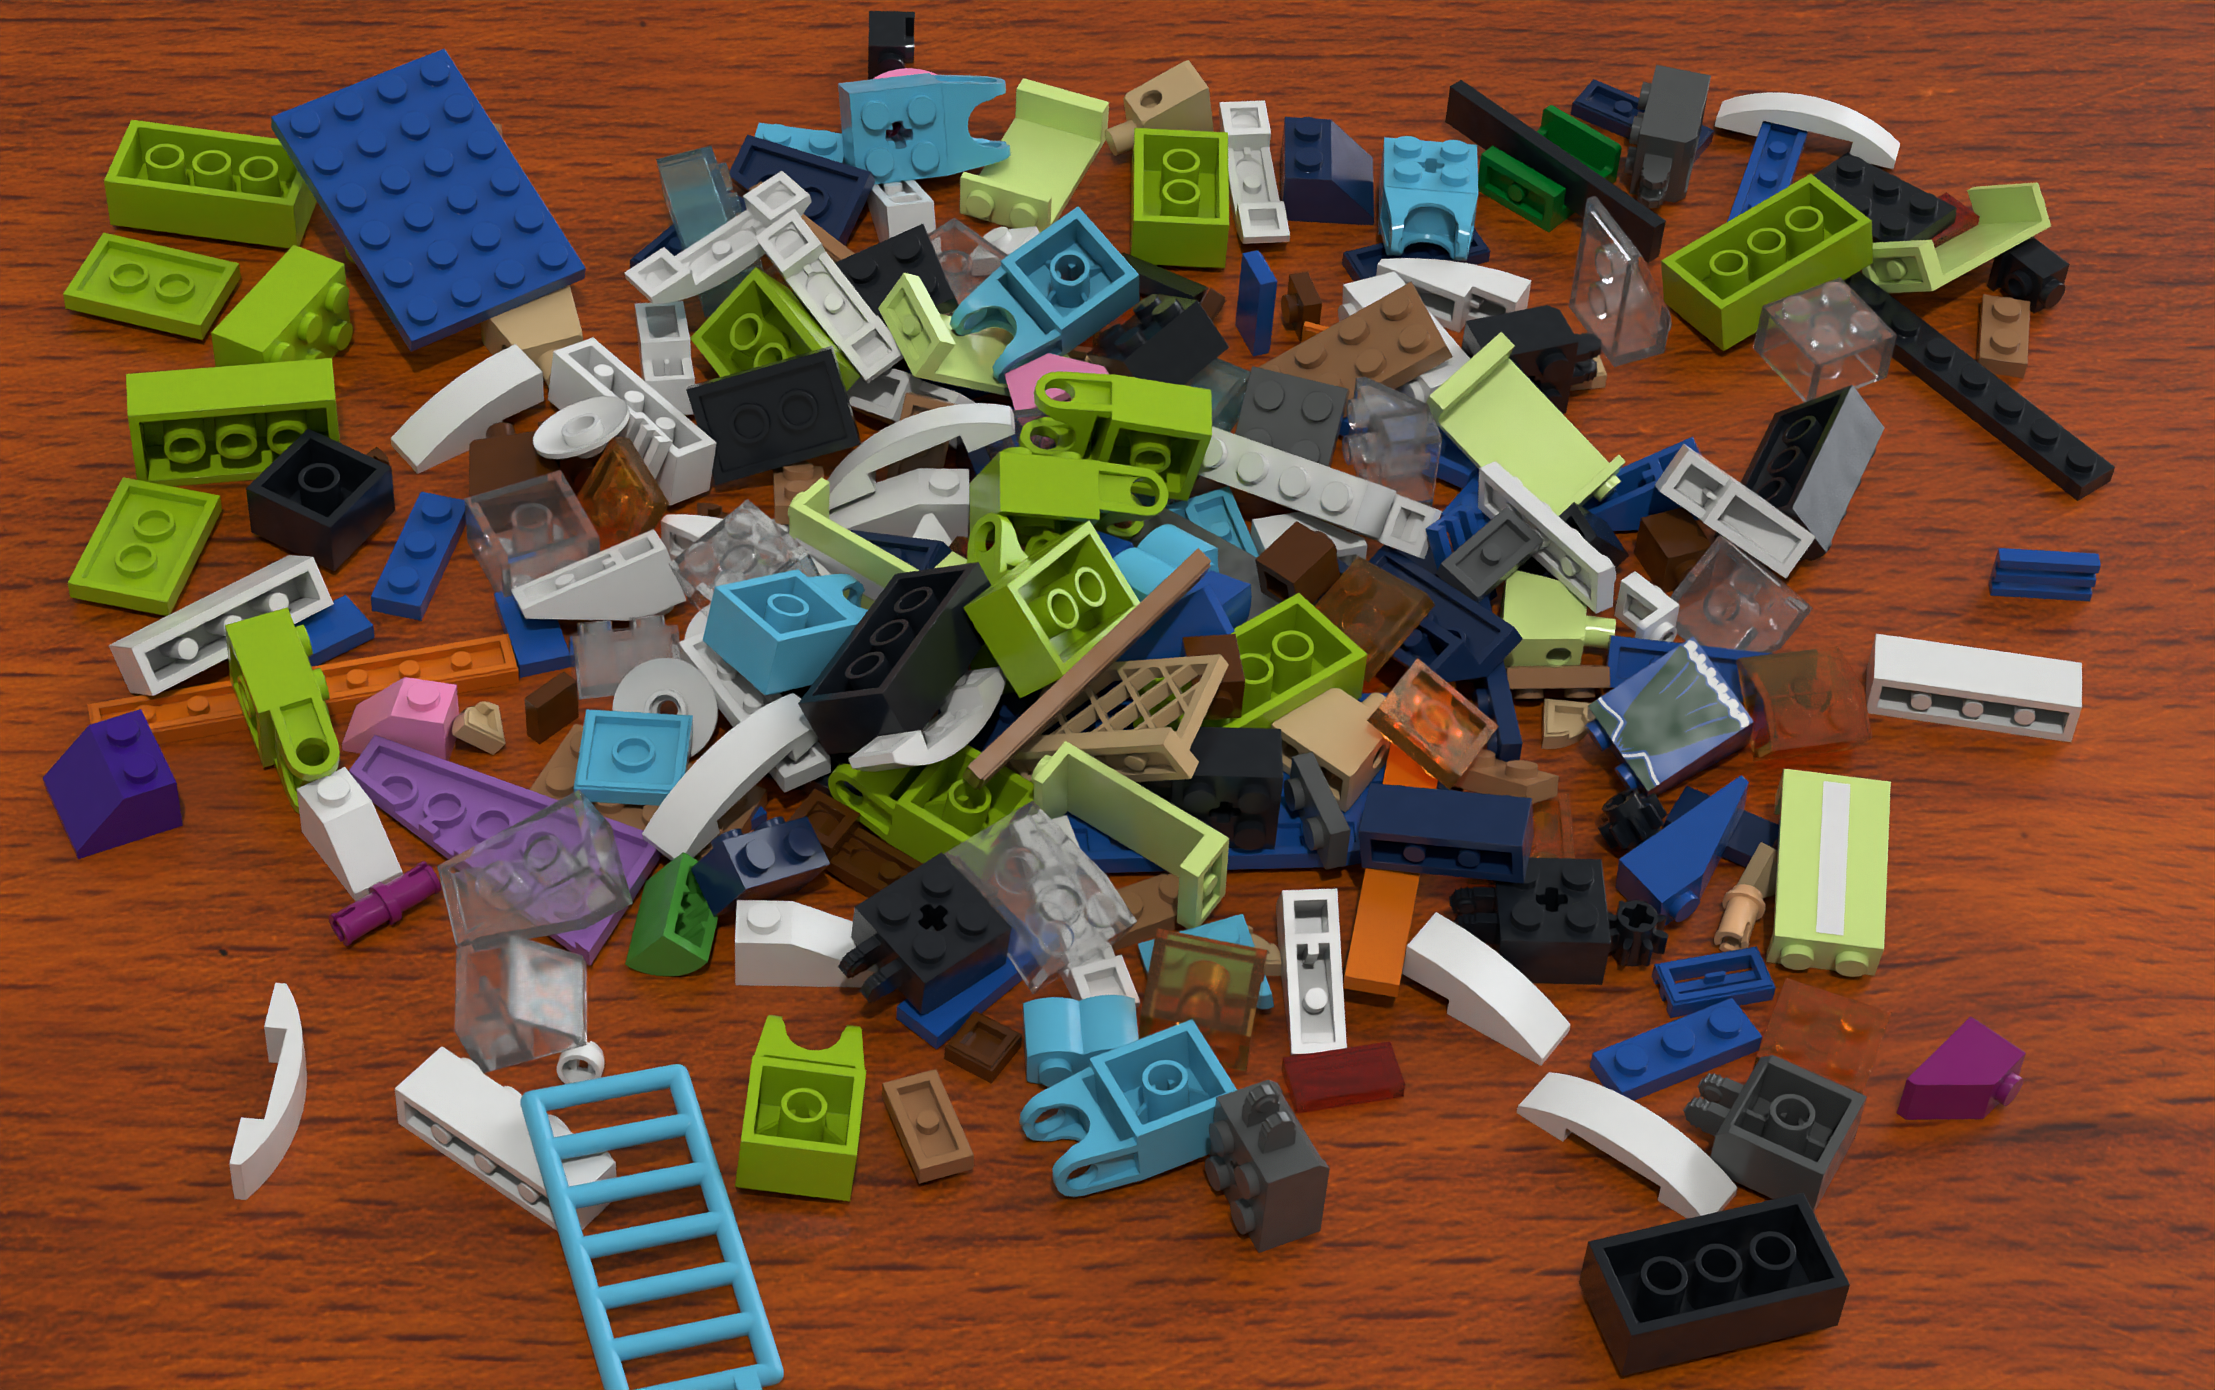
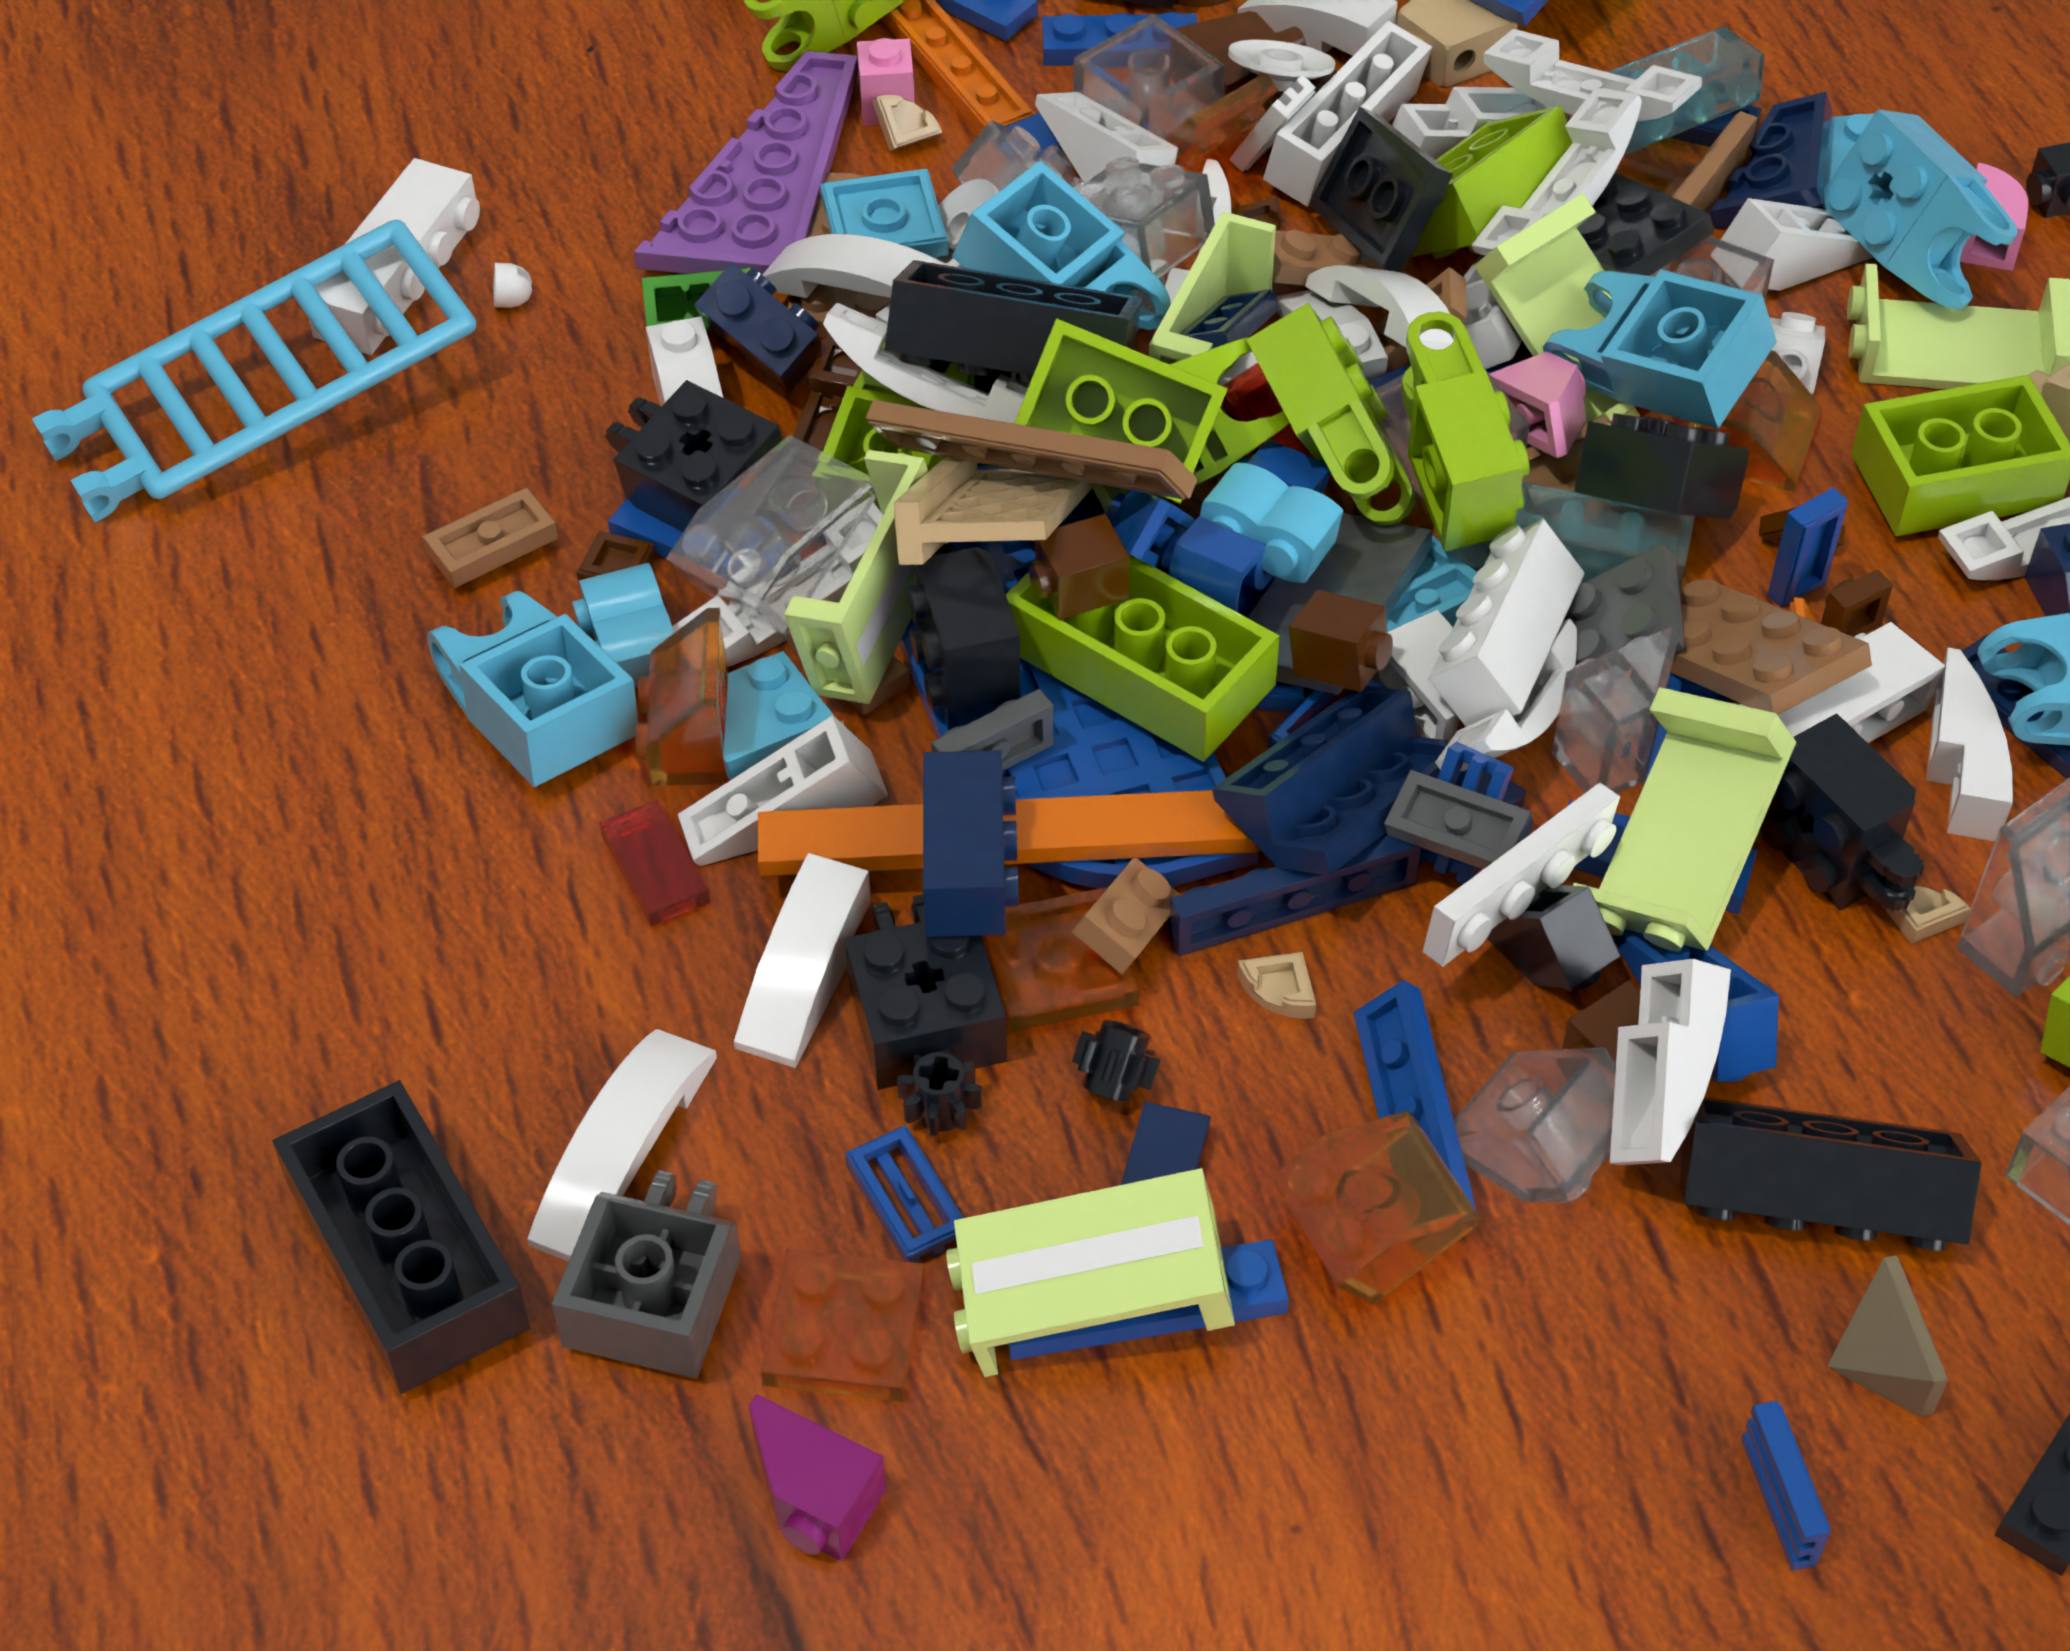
camera: 80 degrees right, 5 degrees up
(264, 1142) = (417, 110): white slope -> none
(347, 832) = (732, 70): white slope -> none
(385, 903) = (662, 118): magenta pin -> none
(519, 1001) = (546, 211): clear slope -> none
(537, 876) = (694, 187): clear slope -> none
(551, 707) = (938, 154): reddish brown tile -> none
(802, 1115) = (476, 433): lime brick -> none
(1161, 281) = (1817, 460): black tile -> none
(1266, 1166) = (470, 789): dark grey hinge -> none
(1340, 738) = (1102, 741): tan torso -> none
(1374, 610) = (1300, 722): clear orange plate -> none
(1433, 723) = (1139, 804): clear orange plate -> none
(1549, 622) = (1390, 921): yellowish green torso -> none
(1577, 680) = (1332, 945): medium nougat plate -> none
(1646, 609) = (1480, 1043): white bracket -> none
(1669, 721) = (1281, 1059): slope -> none
(1676, 1050) = (783, 1171): blue plate -> none
(1681, 858) = (1070, 1120): blue slope -> none
(1742, 908) = (997, 1196): light nougat pin -> none
(1941, 492) = (1891, 1346): none -> dark tan slope
(1974, 688) = (1520, 1421): white brick -> none

